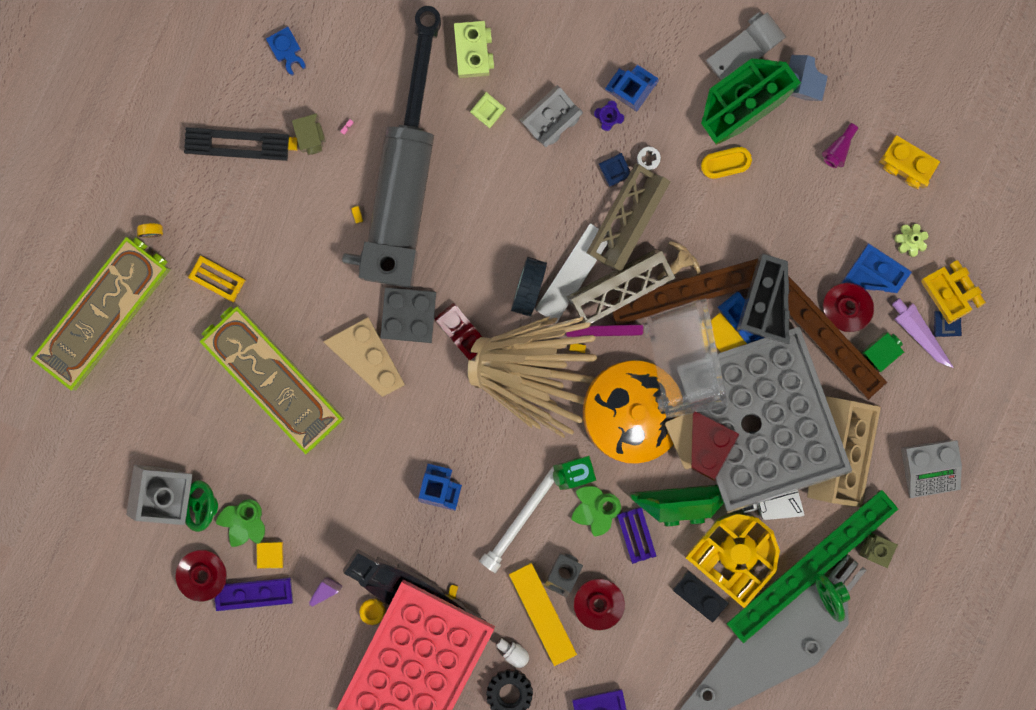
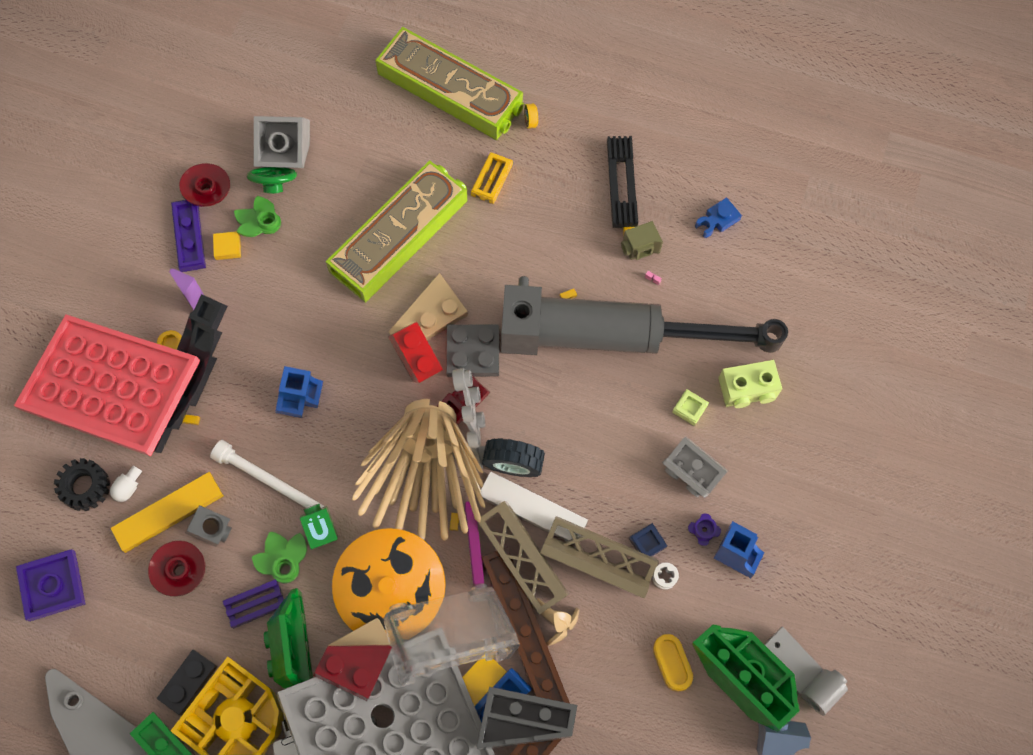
camera: 85 degrees right, 20 degrees down
(417, 371) = (415, 352): none -> red brick
(457, 325) = (474, 420): none -> light grey plant

